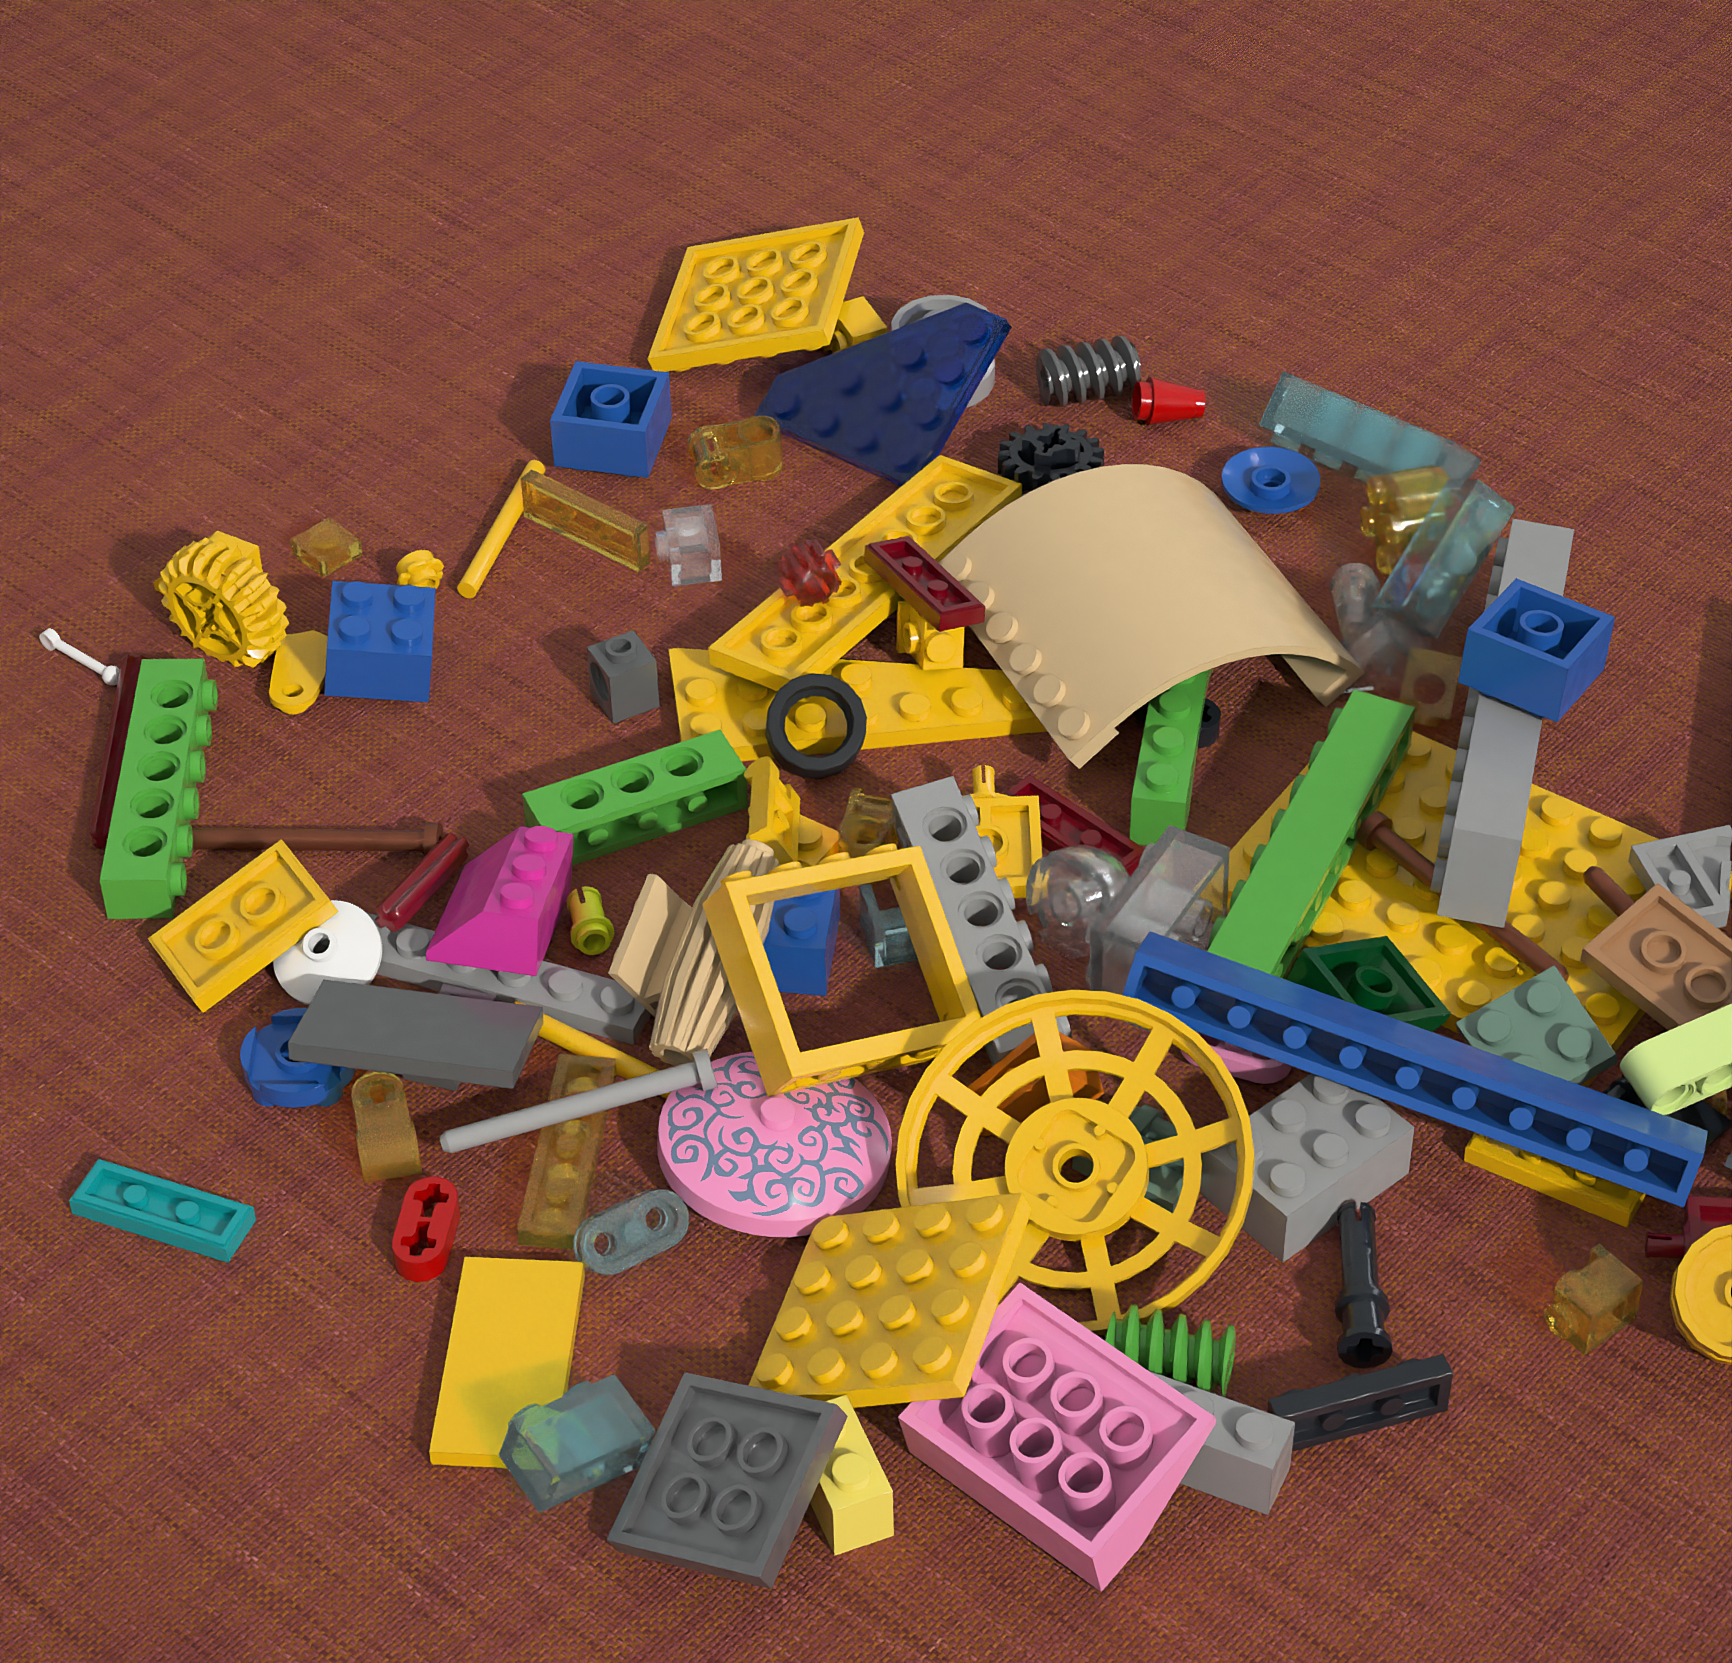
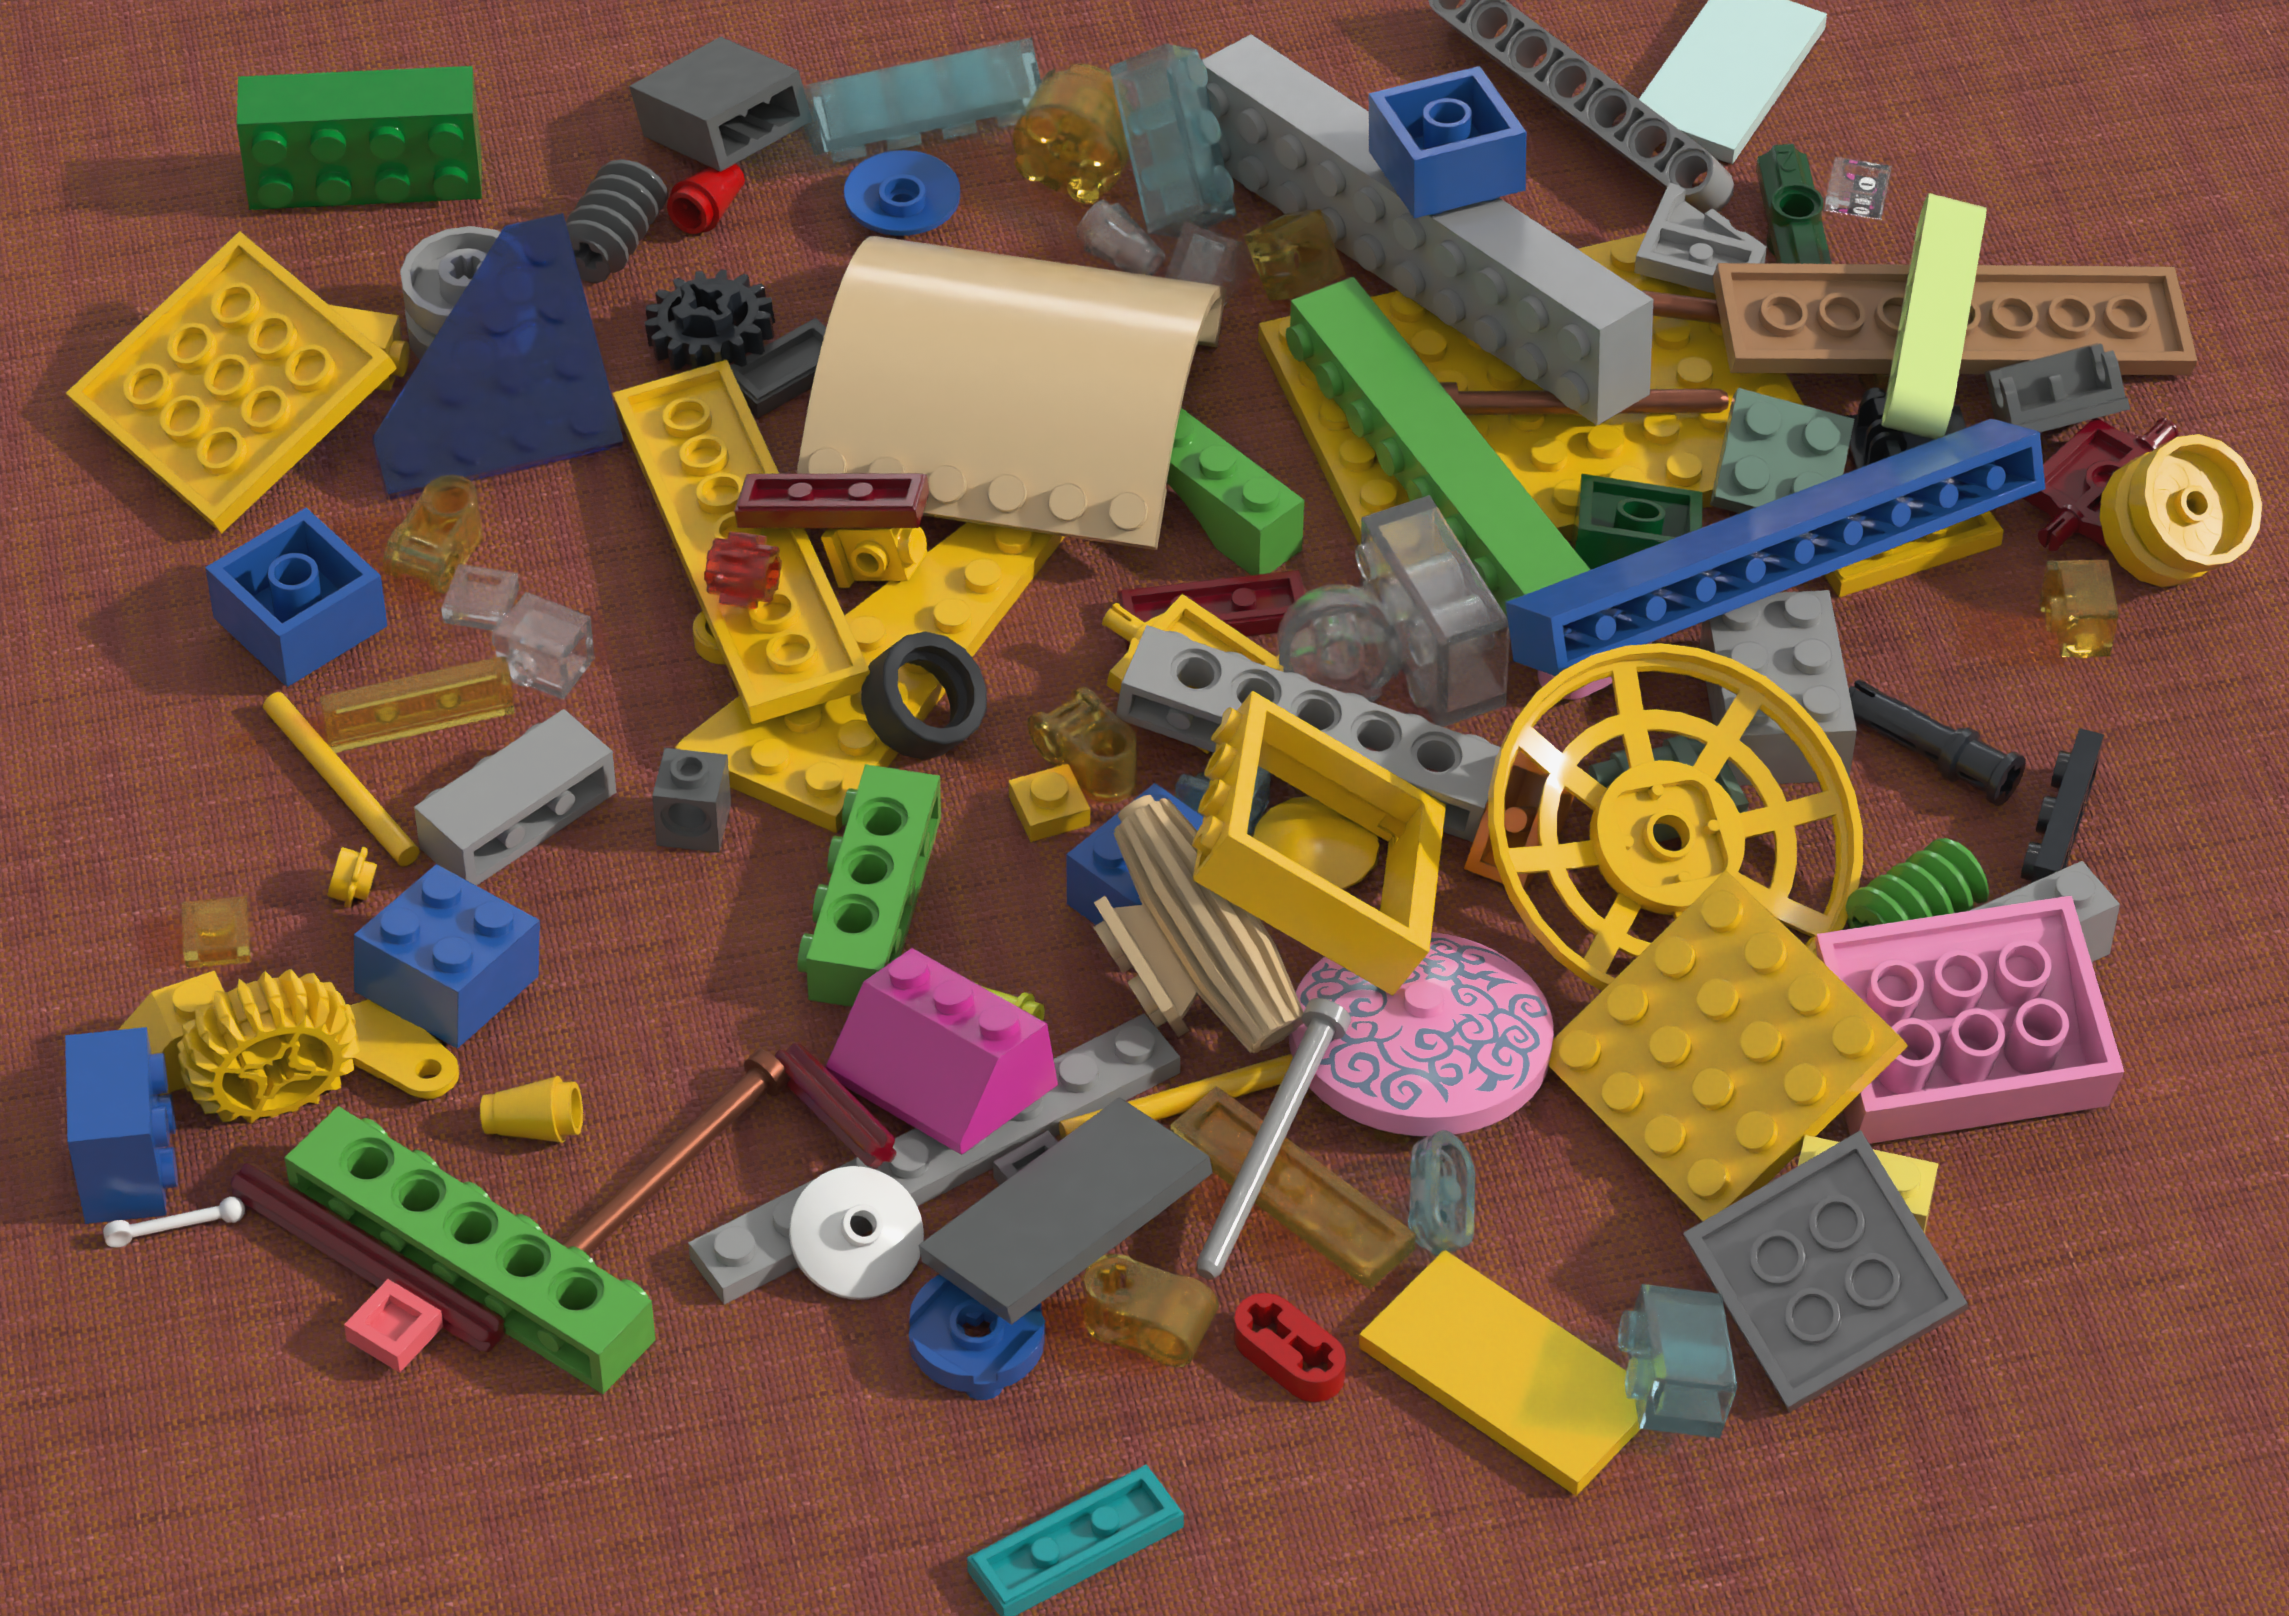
camera: 55 degrees left, 5 degrees up
(69, 789) = (393, 1325): none -> coral plate
(103, 577) = (119, 1125): none -> blue brick
(242, 925) = (762, 1276): yellow tile -> none
(301, 756) = (534, 1111): none -> yellow cone
(547, 602) = (515, 798): none -> light grey brick
(723, 496) = (479, 596): none -> clear tile
(773, 810) = (1021, 790): yellow plate -> none
(889, 997) = (1320, 840): none -> yellow dish
(1020, 231) = (359, 137): none -> green brick
(1238, 355) = (720, 103): none -> dark grey brick

